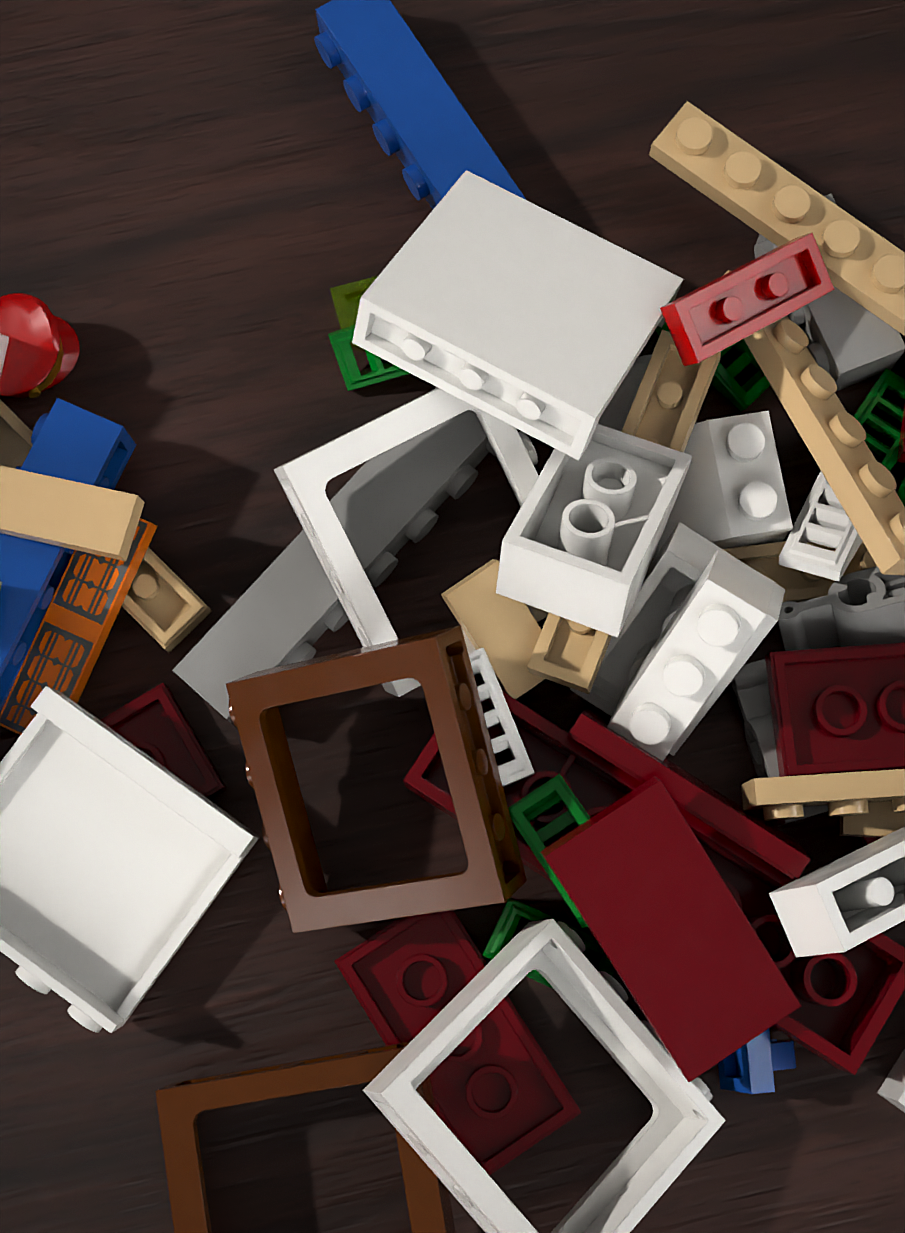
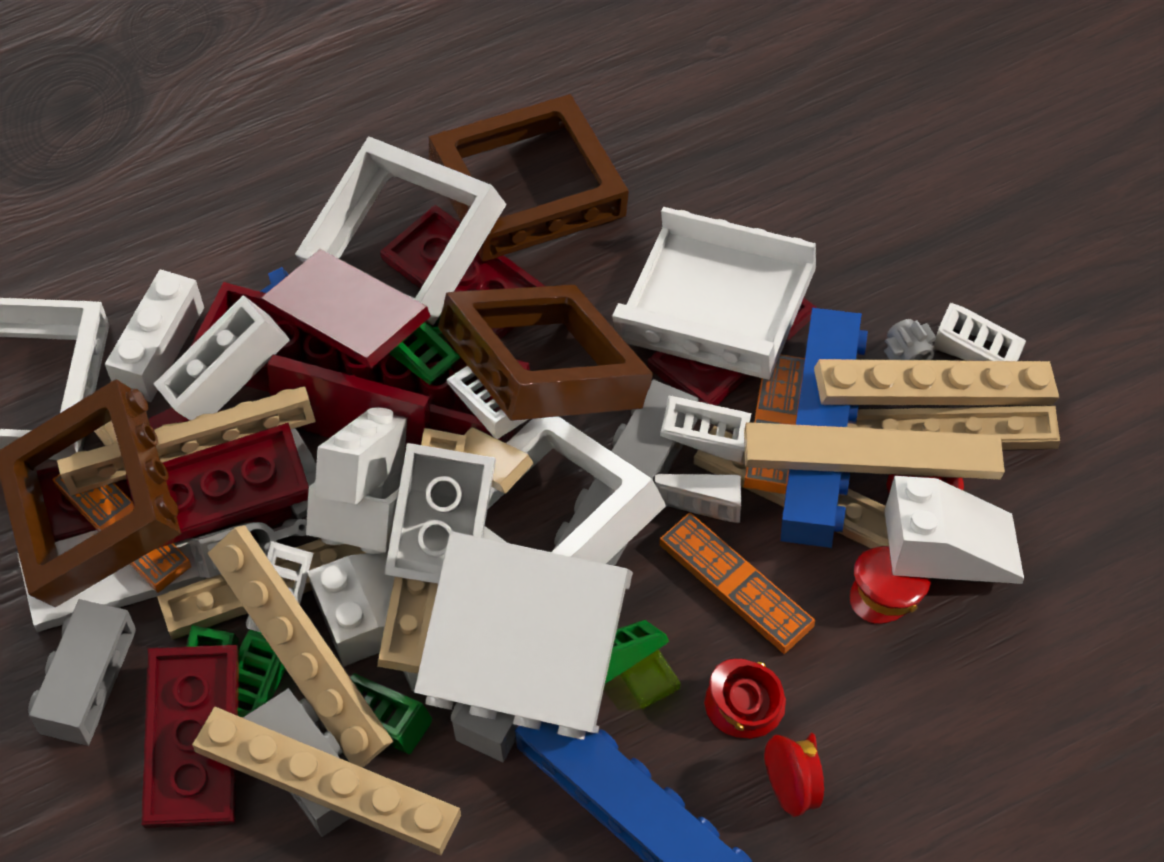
camera: 165 degrees right, 20 degrees down
(138, 592) = (716, 444): none -> white slope
(205, 533) = (702, 494): none -> white slope
(213, 410) = (737, 583): none -> orange tile
(224, 118) = (795, 773): none -> red piece
(256, 248) = (744, 699): none -> red piece
(747, 299) = (363, 691): plate -> none

